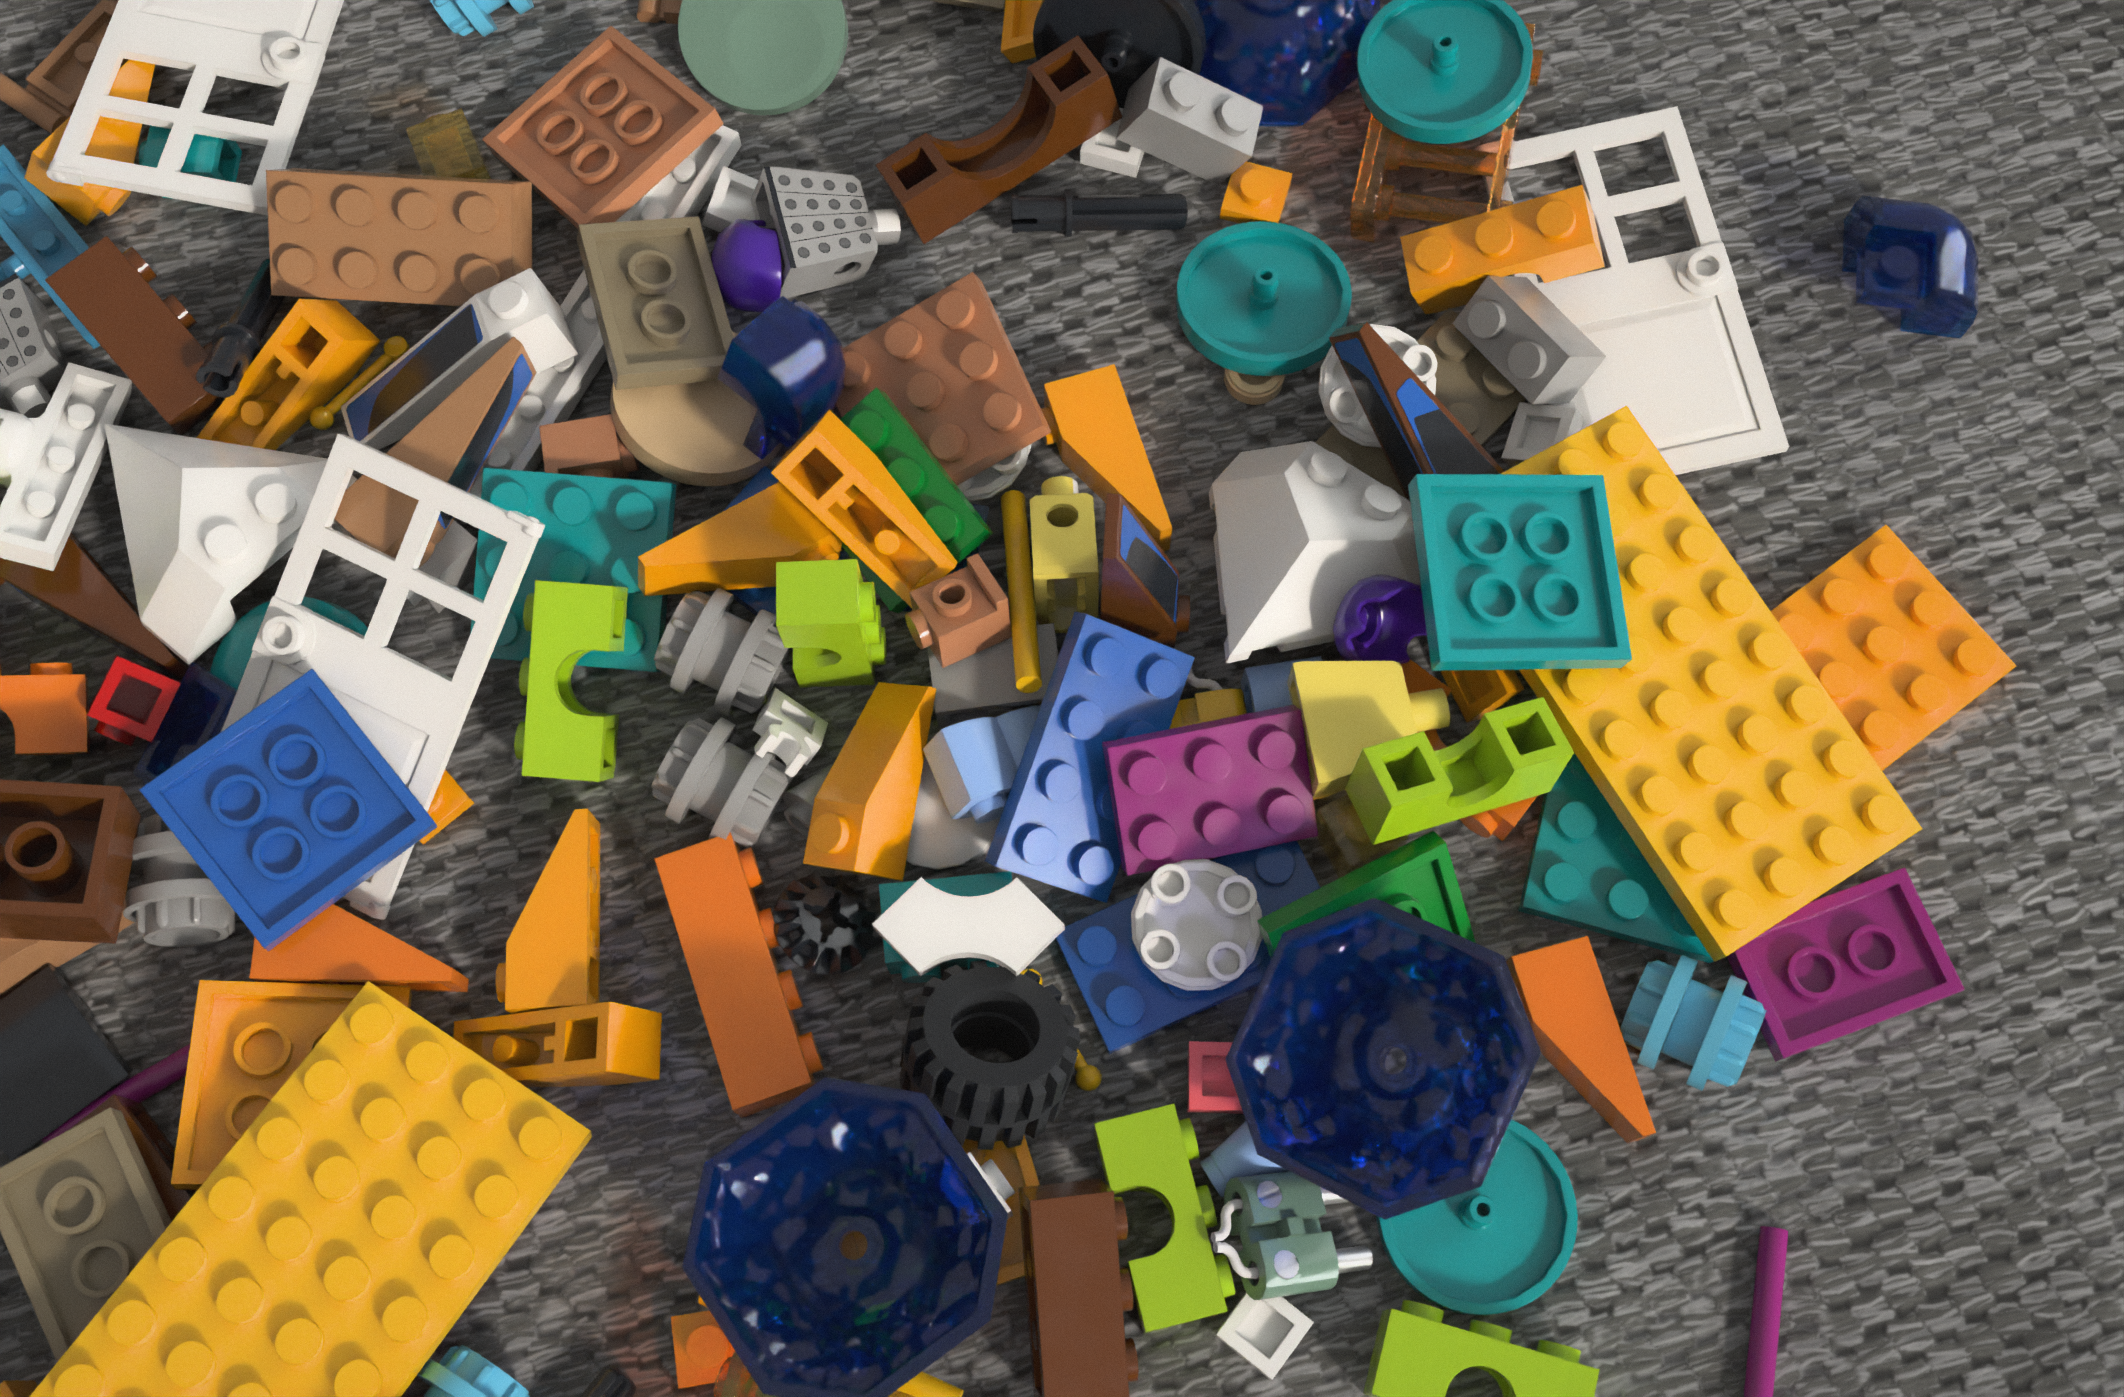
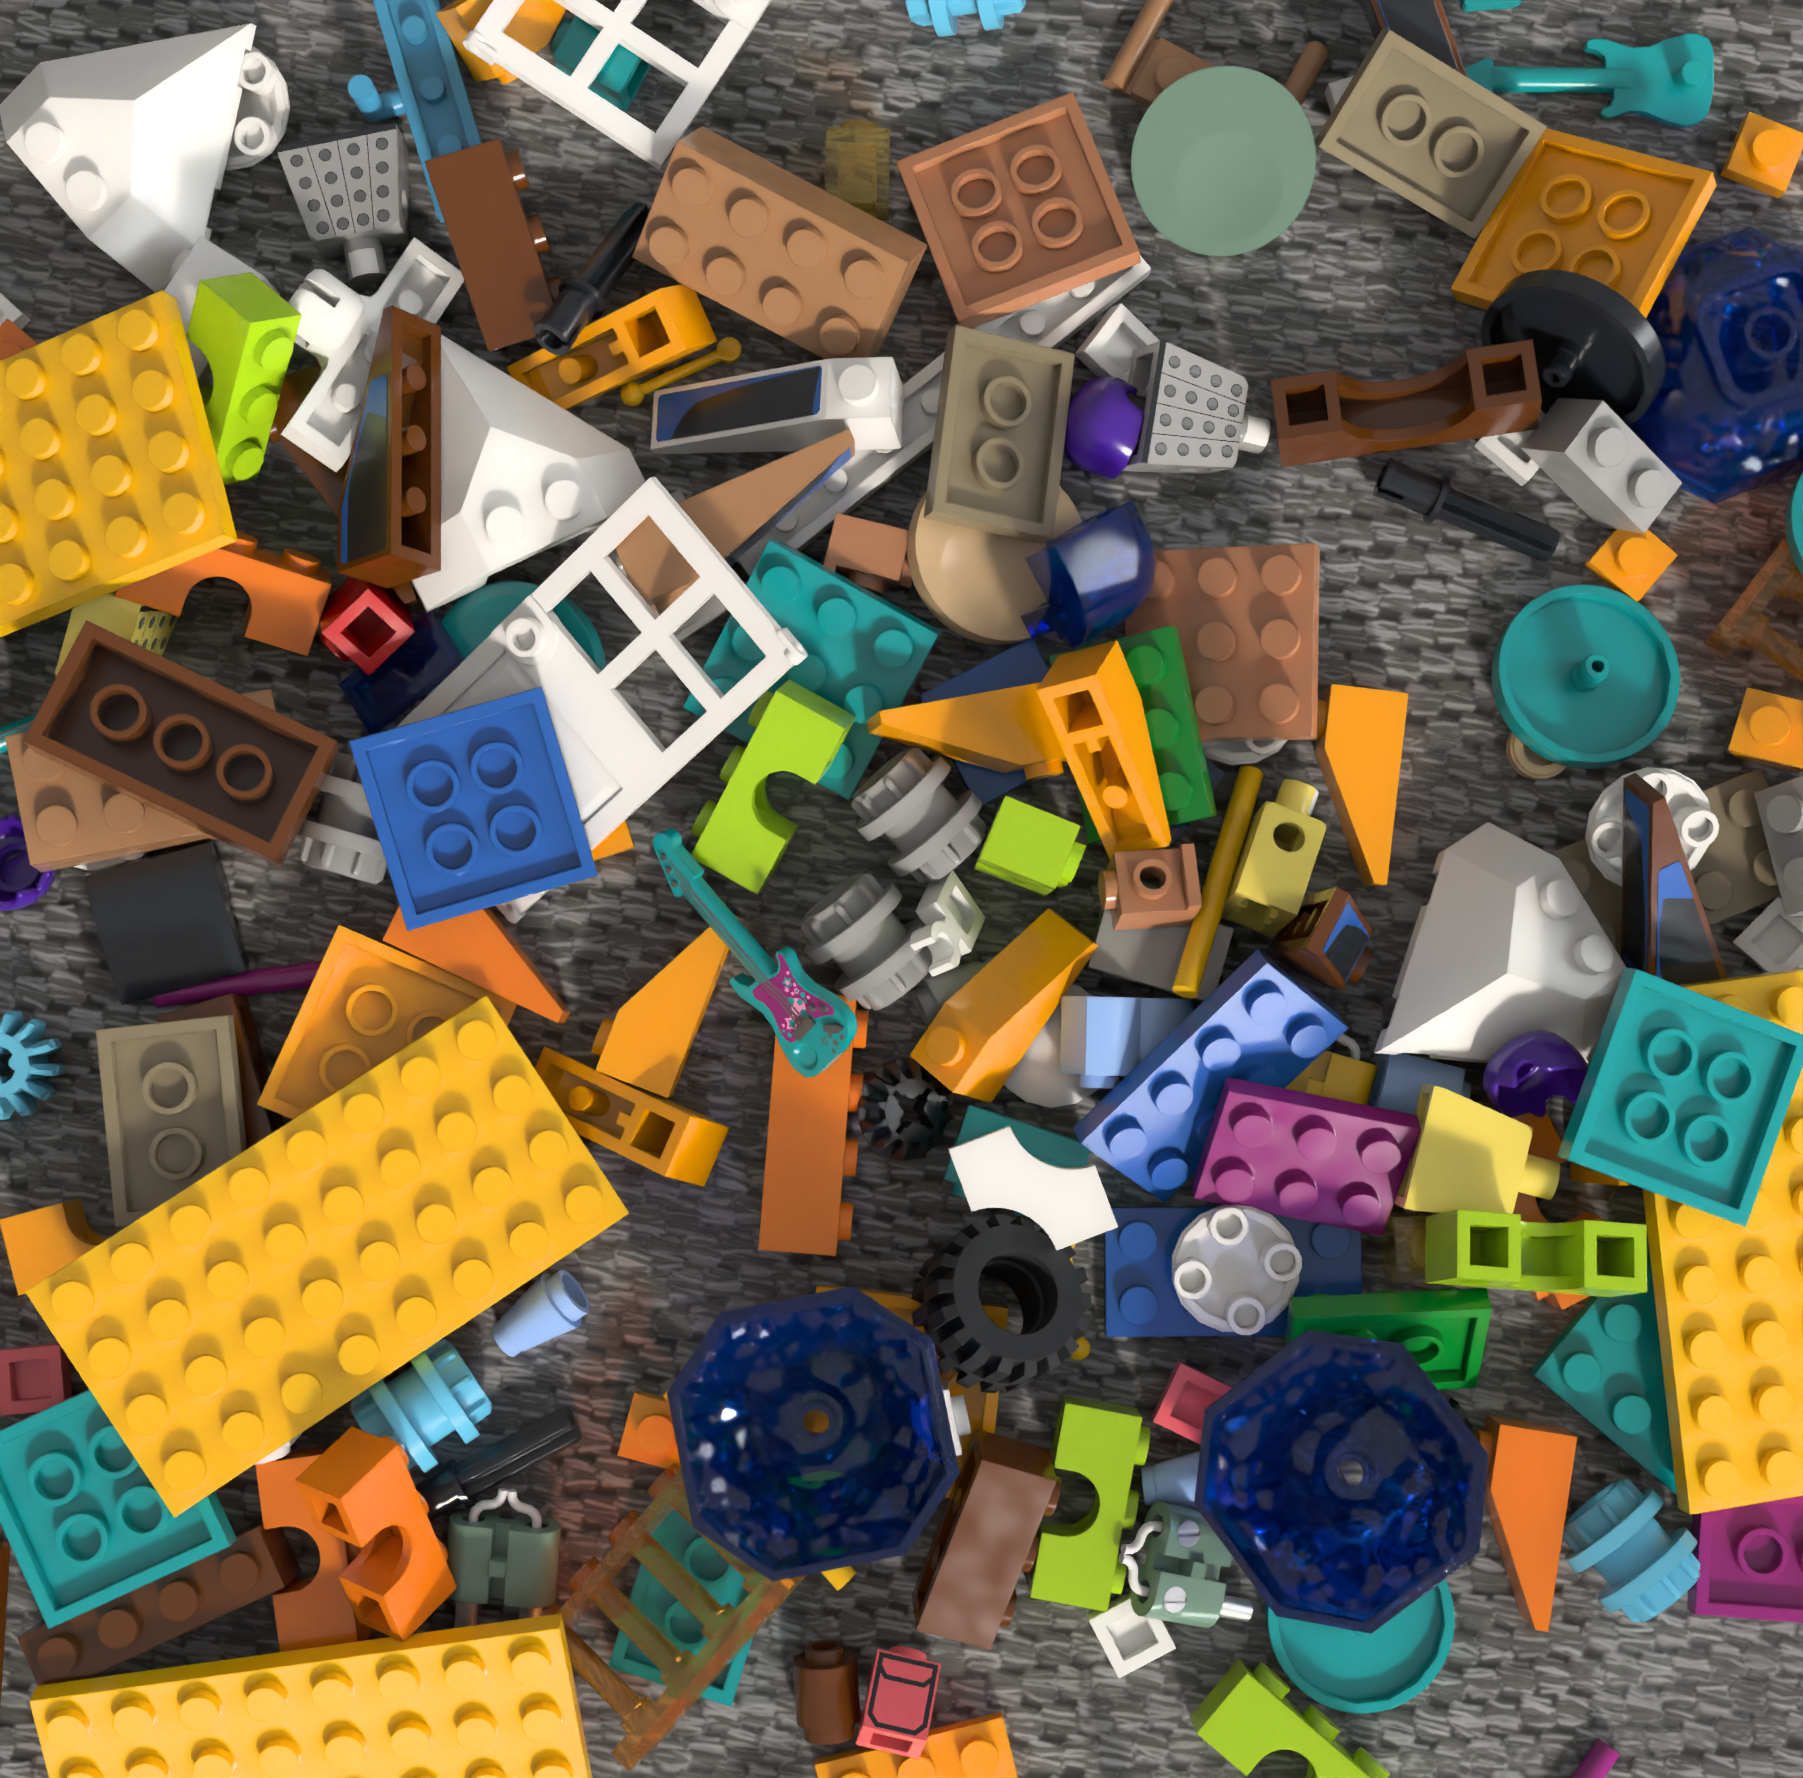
camera: 20 degrees right, 15 degrees up
(106, 545) = (394, 469): none -> reddish brown slope
(546, 1279) = (542, 1313): none -> light blue cone
(683, 861) = (806, 1017): none -> teal piece

